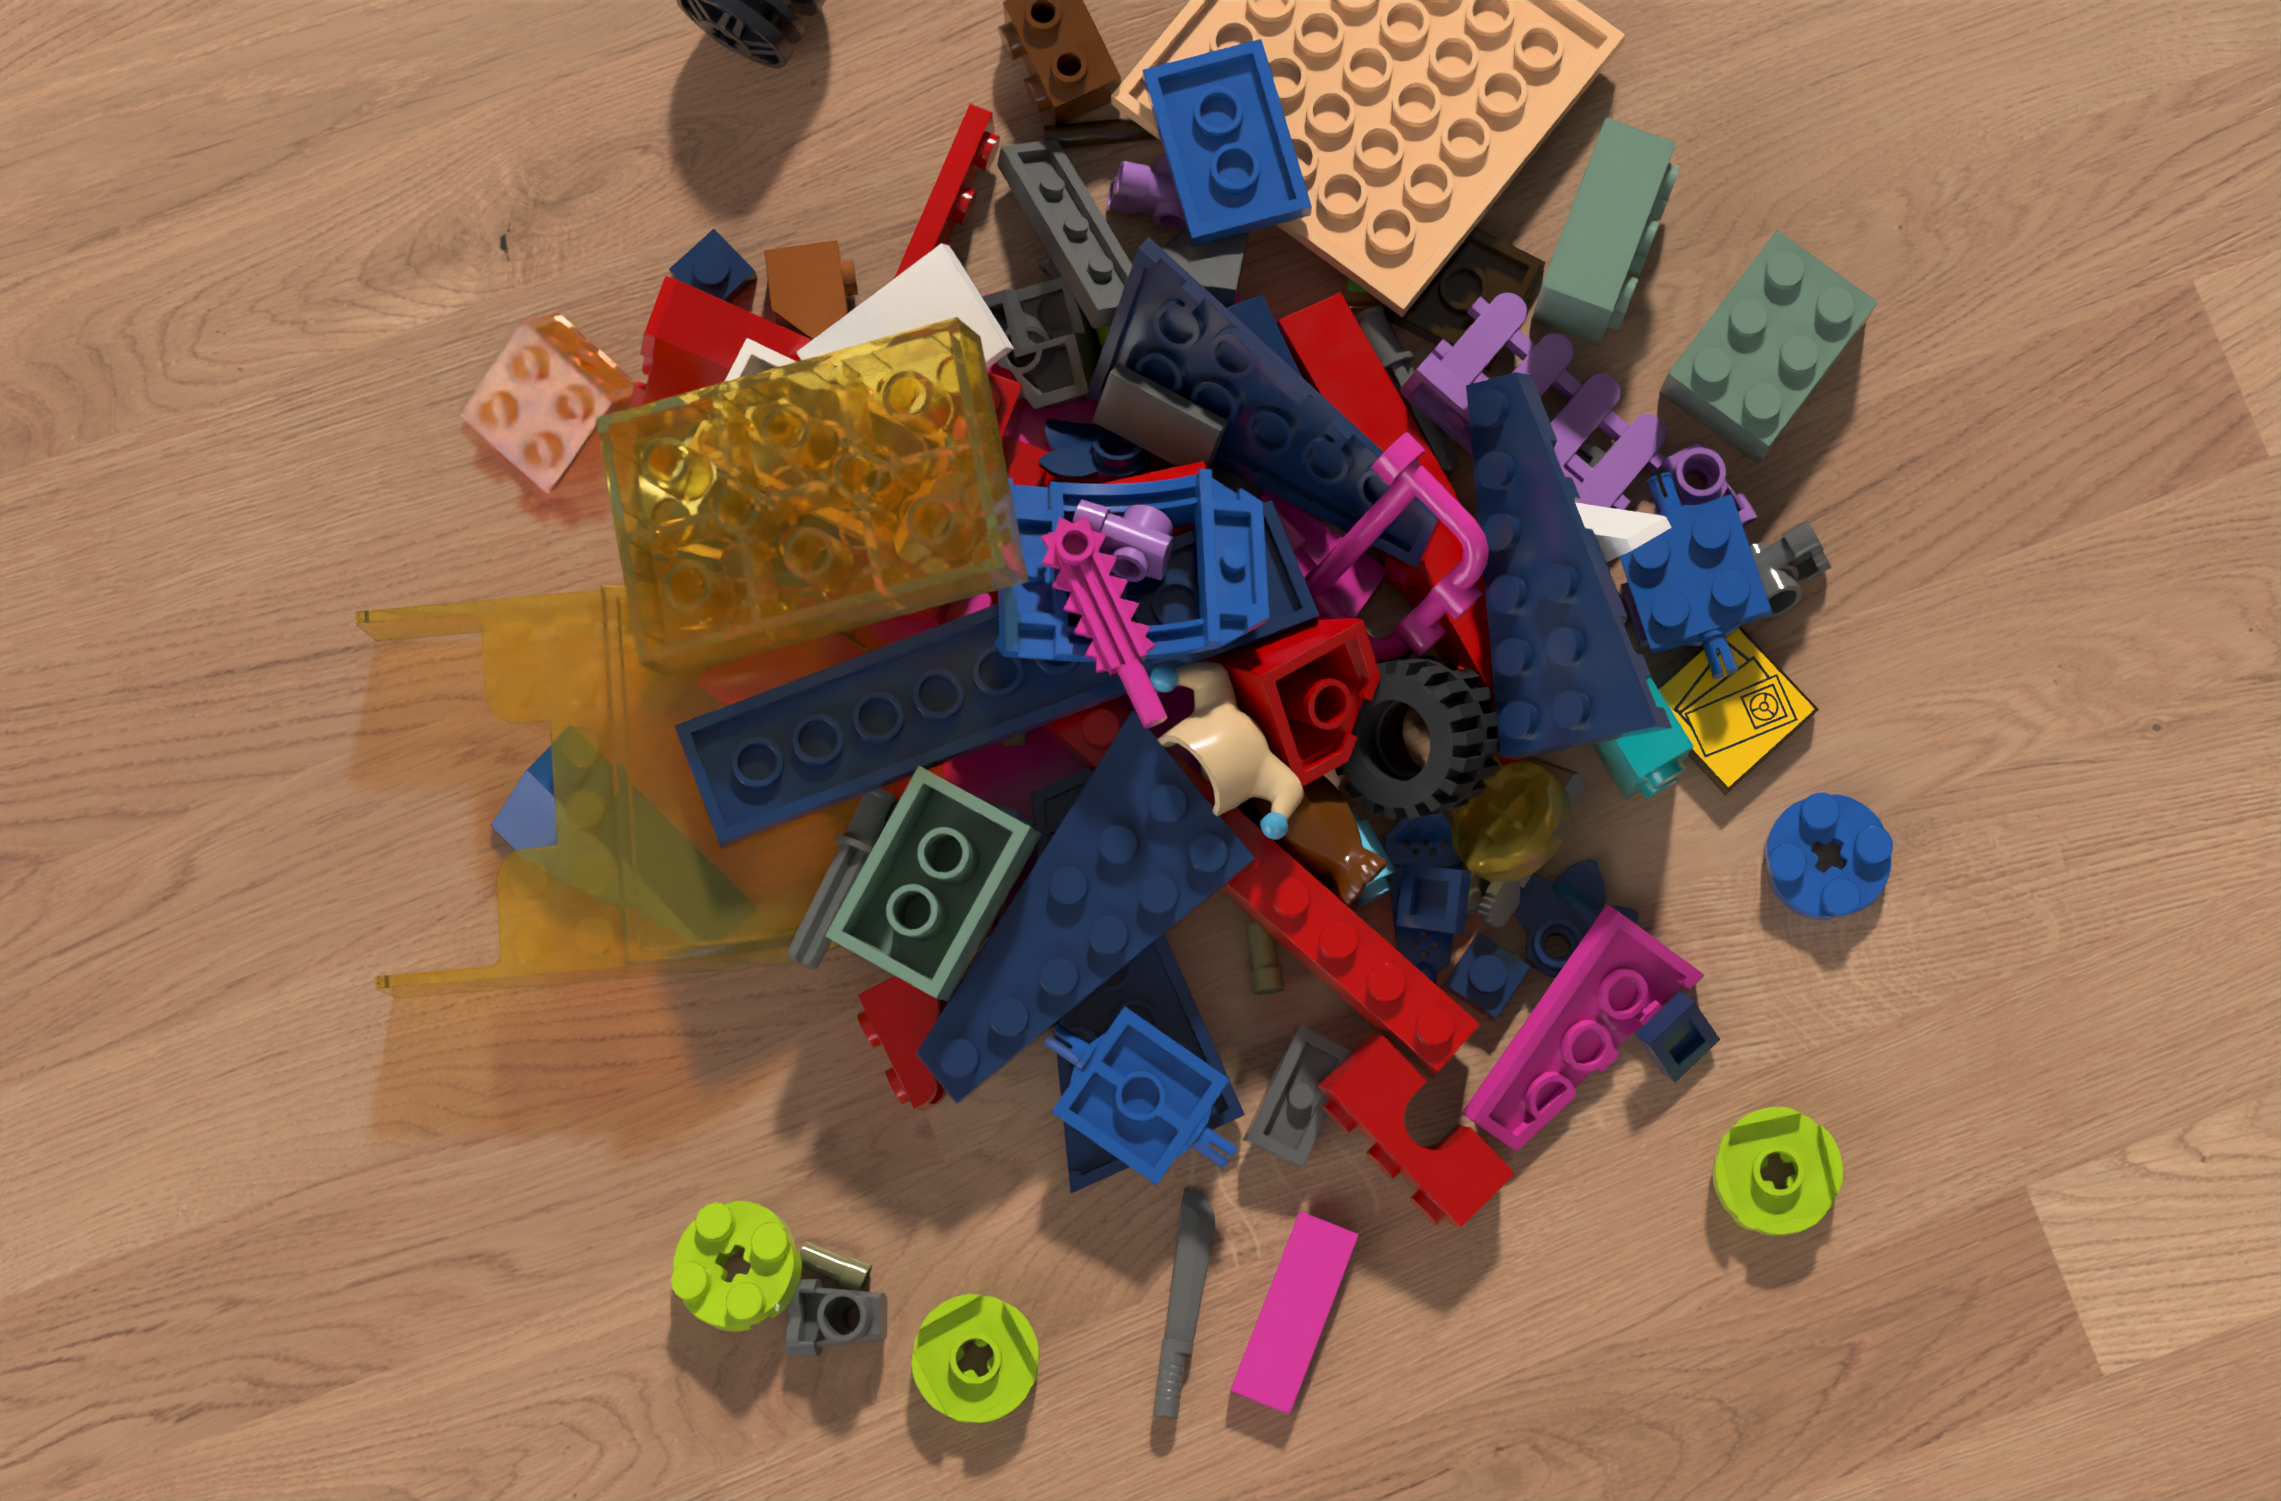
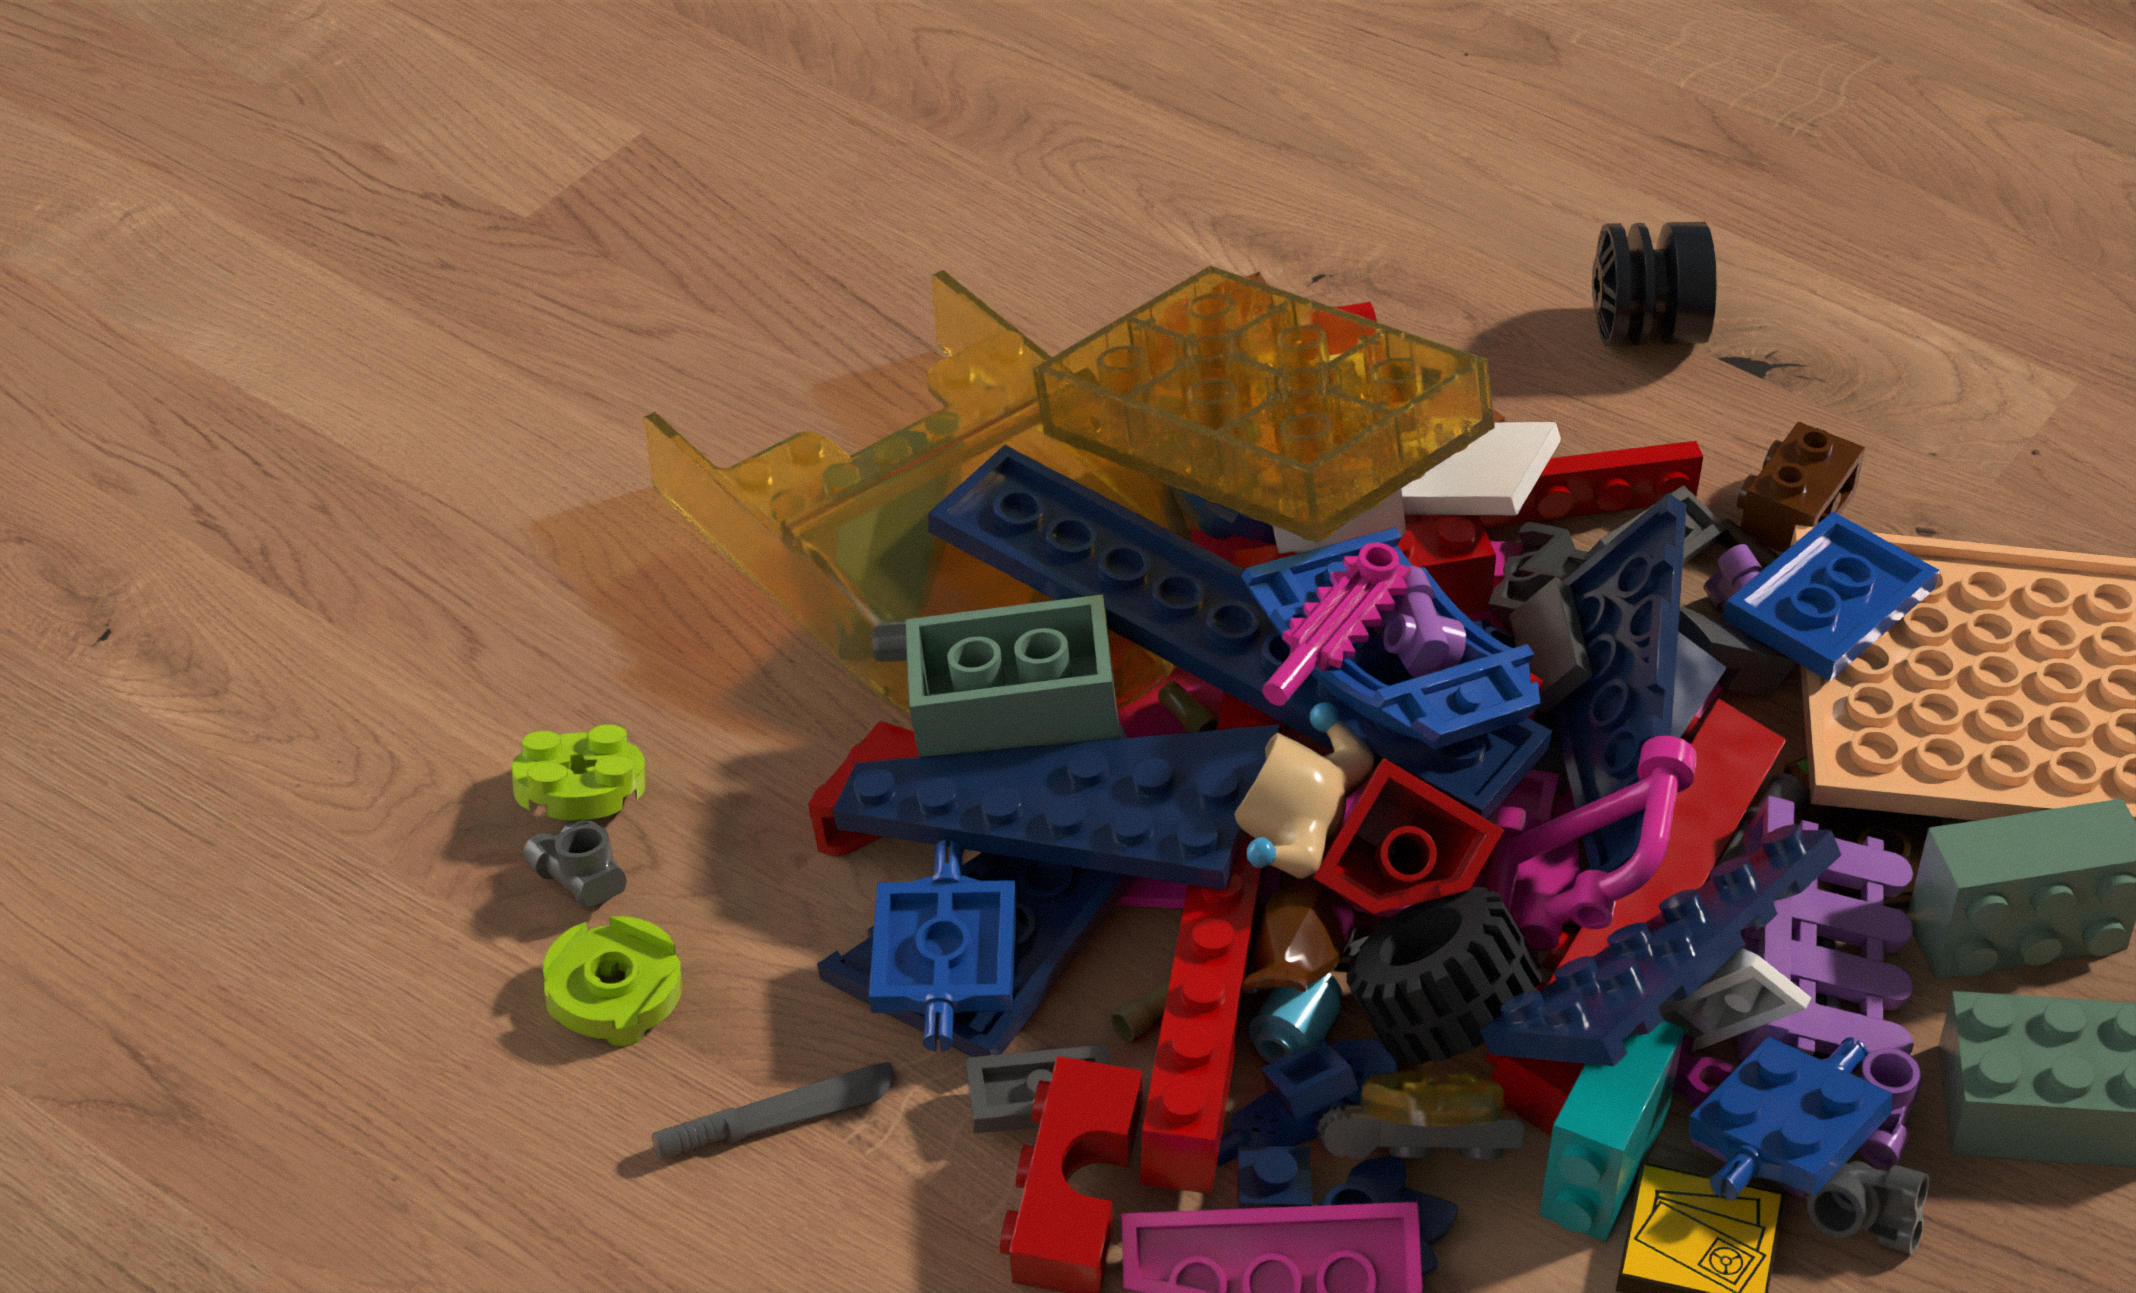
camera: 55 degrees right, 35 degrees down
(850, 1272) = (628, 848): olive piece -> none
(1294, 1312) = (830, 1196): dark pink tile -> none

